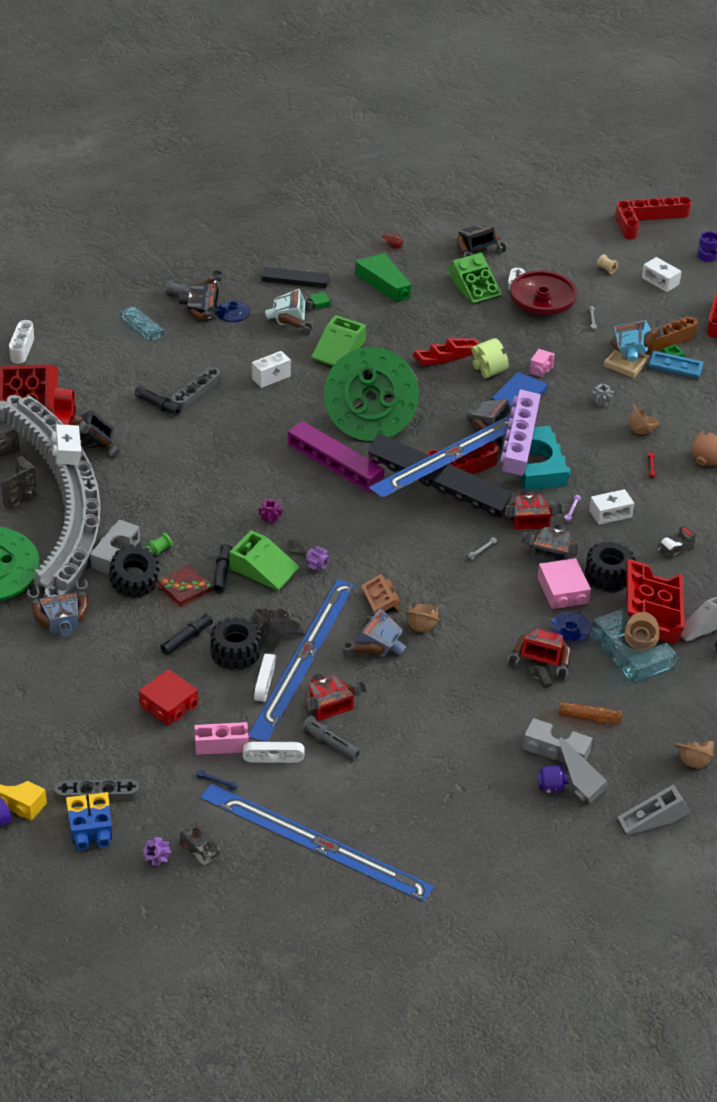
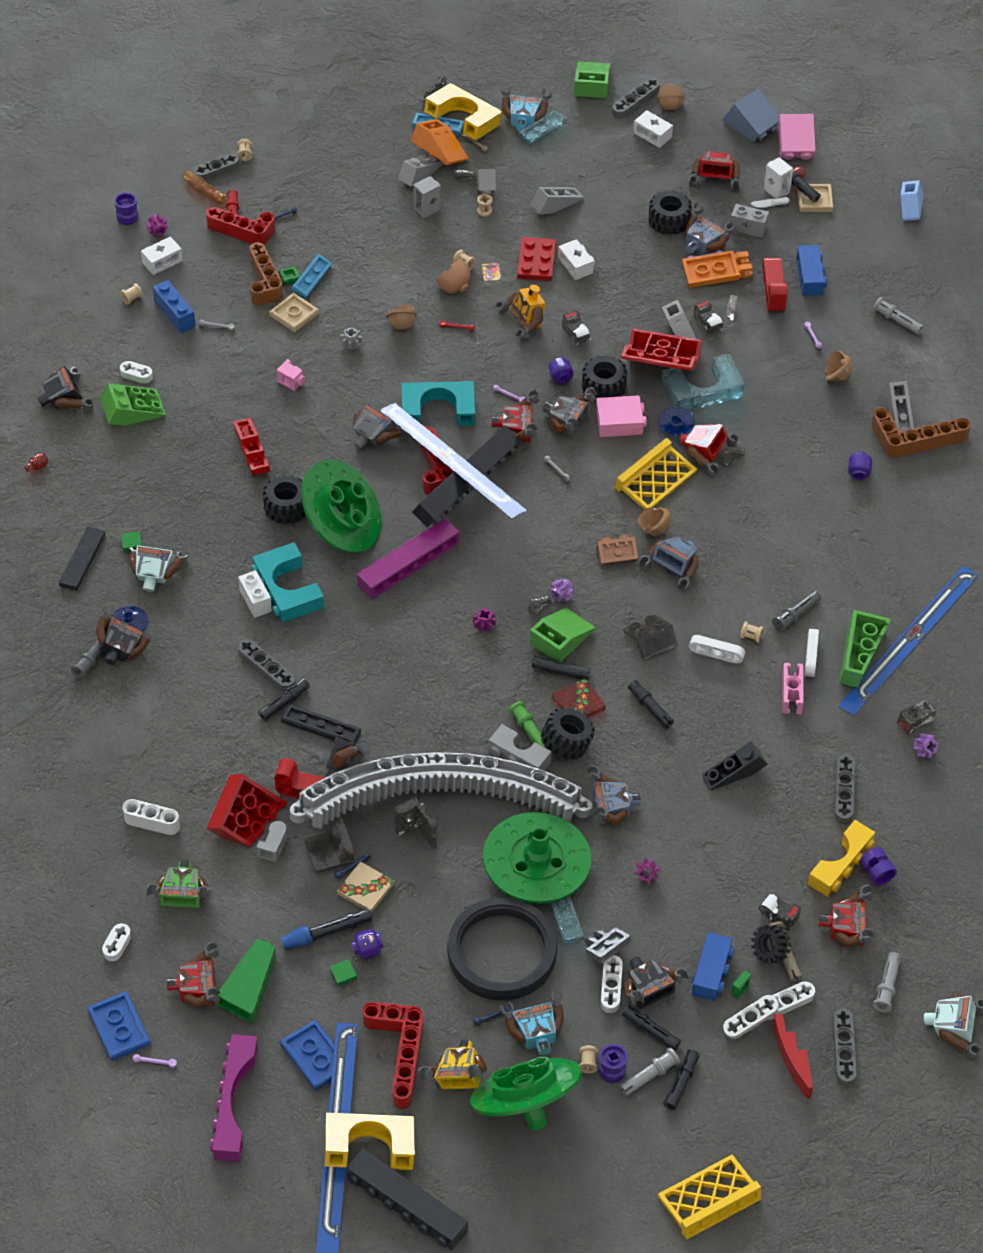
camera: 80 degrees left, 10 degrees up
(66, 444) = (388, 764): white brick -> none
(90, 827) = (886, 793): blue hips -> none
(114, 701) = (735, 767): none -> black slope
(134, 427) = (319, 724): none -> black tile
(142, 323) = (134, 704): clear light blue plate -> none
(168, 697) = (740, 721): red brick -> none
(201, 774) = (828, 710): dark blue hinge -> none
(235, 643) = (674, 676): black tyre -> none
(283, 787) = (861, 643): none -> bright green wedge
(292, 706) = (757, 635): none -> tan bush
(301, 661) = (683, 620): sticker -> none
(302, 374) = (286, 603): none -> teal arch
(331, 696) = (748, 603): torso -> none
(339, 339) = (222, 530): bright green slope -> none
(383, 276) = (109, 477): green slope -> none
(489, 358) = (281, 410): yellowish green brick -> none
(499, 607) = (642, 468): none -> yellow fence
(518, 382) = (329, 402): blue tile -> none
(520, 432) = (419, 401): lavender brick -> none
(539, 740) = (811, 466): light grey arch -> none
(543, 292) = (176, 351): dark red dish -> none
(585, 778) = (868, 441): light grey slope -> none
(590, 712) = (783, 423): clear orange pin -> none
(600, 287) = (174, 306): none -> blue brick
(602, 814) = (917, 439): none -> dark orange beam
(611, 507) = (519, 363): white brick -> none
(611, 532) = (560, 370): none -> dark purple head
(632, 211) = (42, 259): red beam -> none
(634, 338) = (283, 294): torso -> none
(642, 631) = (708, 368): medium nougat piece -> none
(683, 504) = (527, 307): none -> torso
(697, 266) = (157, 225): none -> magenta gear

